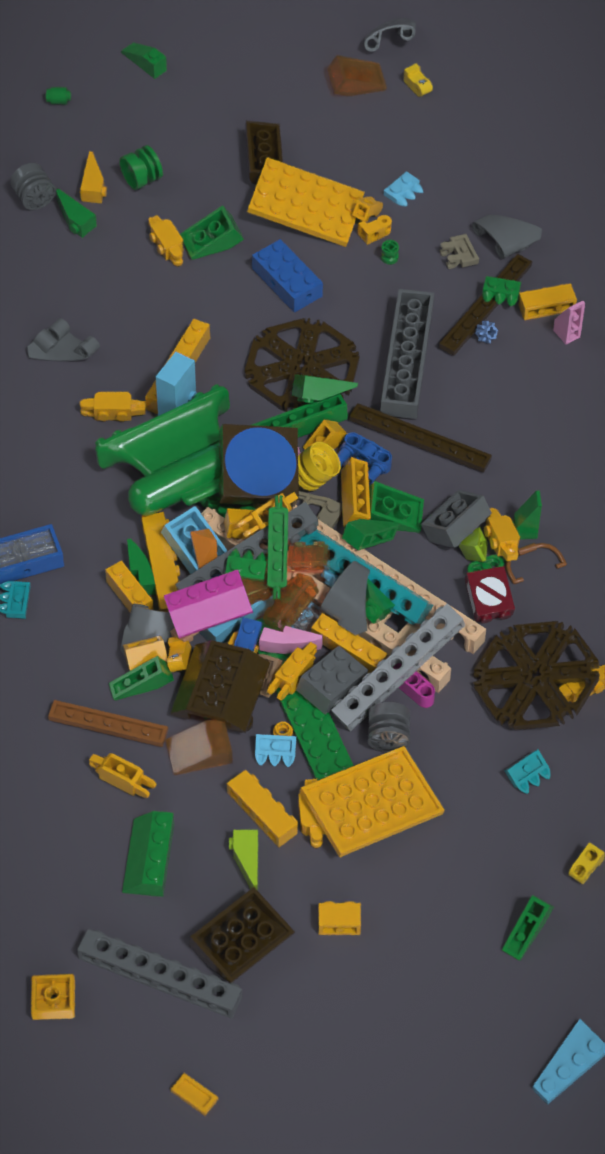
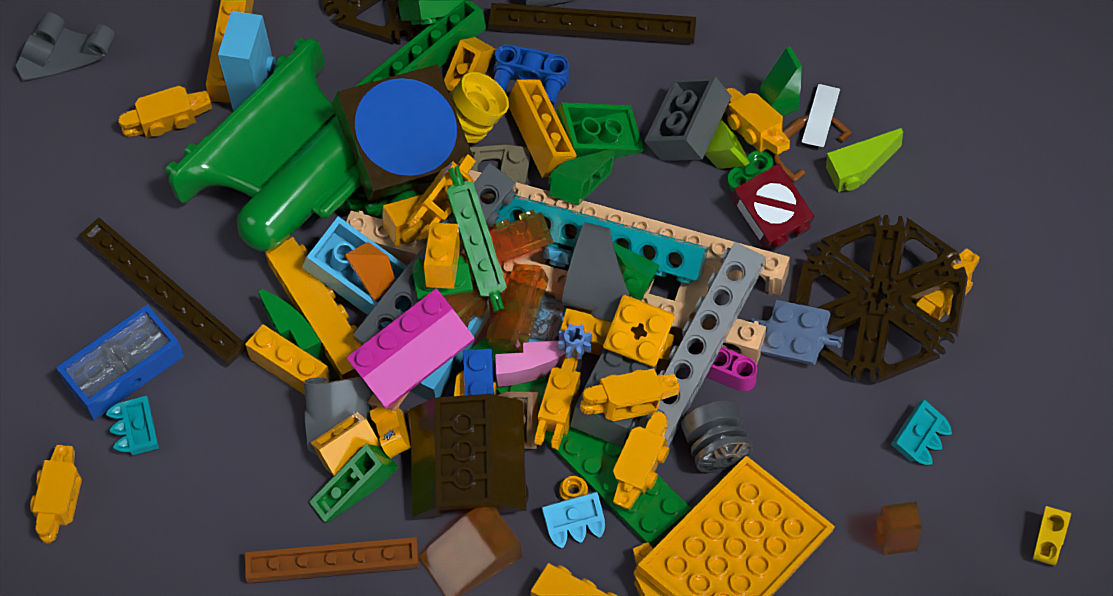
camera: 15 degrees left, 5 degrees up
(66, 521) = (163, 292): none -> dark brown plate
(250, 550) = (442, 255): none -> light orange brick
(318, 634) = (574, 341): none -> medium blue gear
(332, 724) = (640, 459): none -> light orange hinge
(338, 679) = (629, 394): none -> light orange hinge
(362, 628) = (646, 347): none -> light orange brick
(471, 680) = (797, 332): none -> sand blue plate
(484, 824) = (898, 528): none -> clear orange brick
(549, 546) = (821, 115): none -> white sticker
(562, 584) = (858, 162): none -> lime slope

